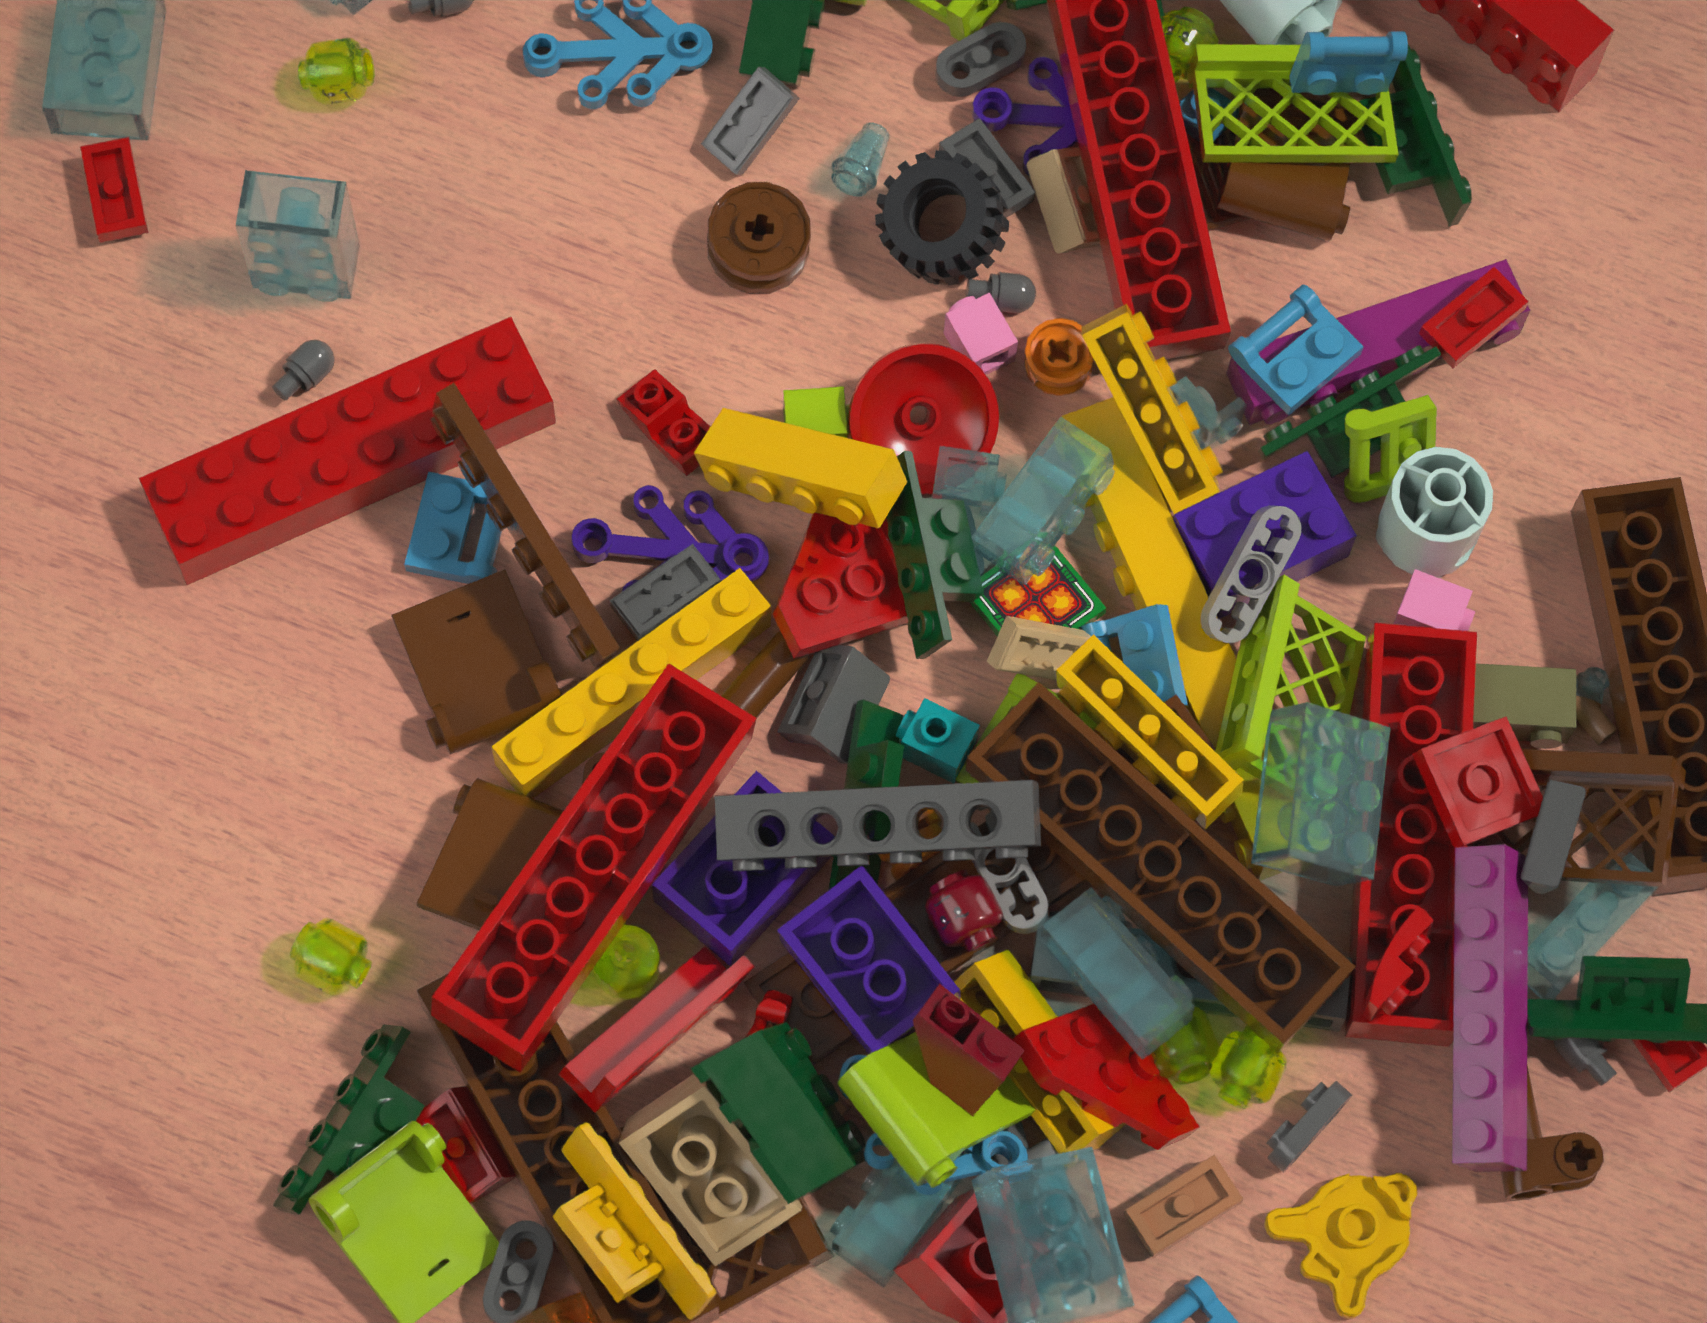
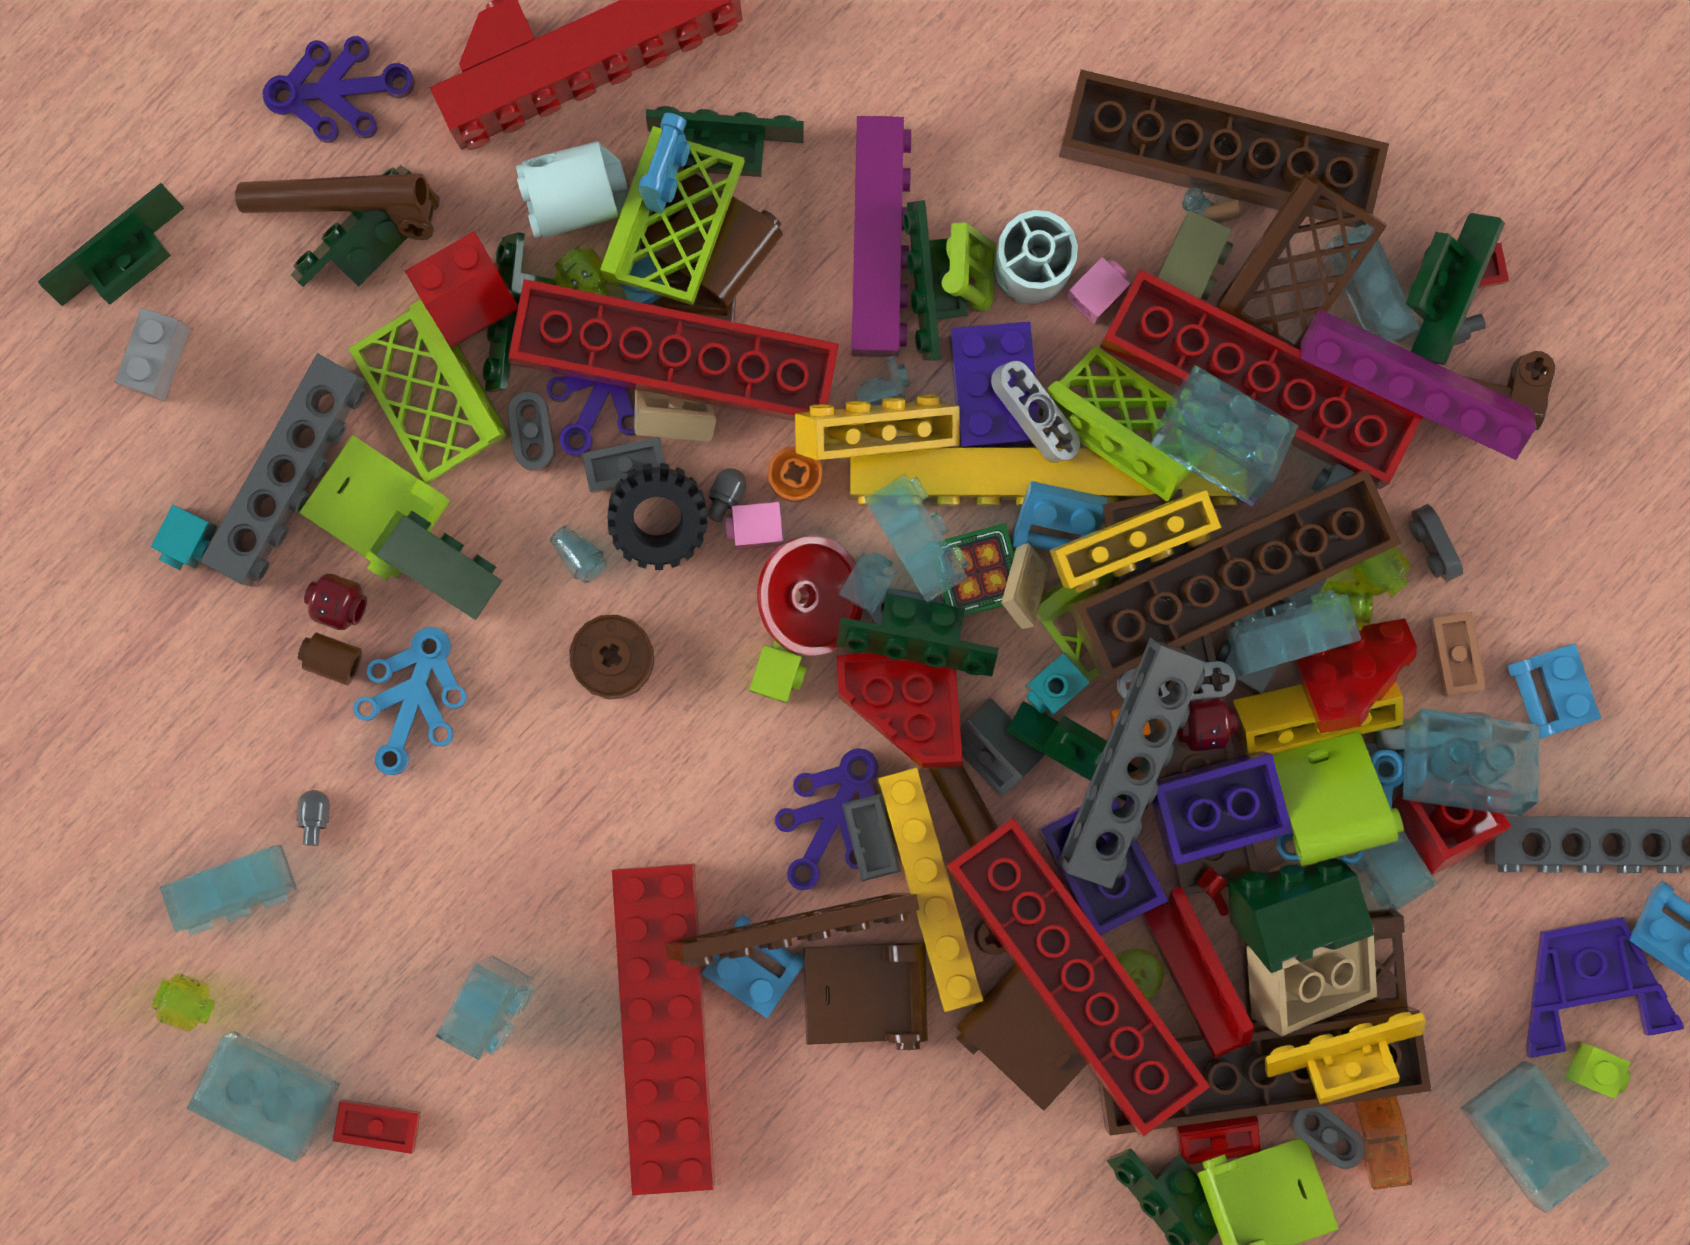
camera: 65 degrees left, 15 degrees up
(305, 368) = (580, 1034): dark grey cylinder -> none
(330, 956) = (1049, 1183): clear neon green head -> none
(337, 70) = (346, 922): clear neon green head -> none
(665, 419) = (731, 779): red slope -> none
(750, 121) = (516, 625): plate -> none
(801, 468) = (820, 704): yellow brick -> none
(963, 1050) = (1319, 768): dark red slope -> none
(1307, 361) = (882, 298): dark azure plate -> none
(1352, 1233) = (1517, 545): yellow tile -> none
(1388, 983) = (1377, 449): red slope -> none
(1473, 317) = (898, 161): red plate -> none
(1480, 782) = (1258, 318): red plate -> none
(1552, 836) = (1321, 285): dark grey slope -> none

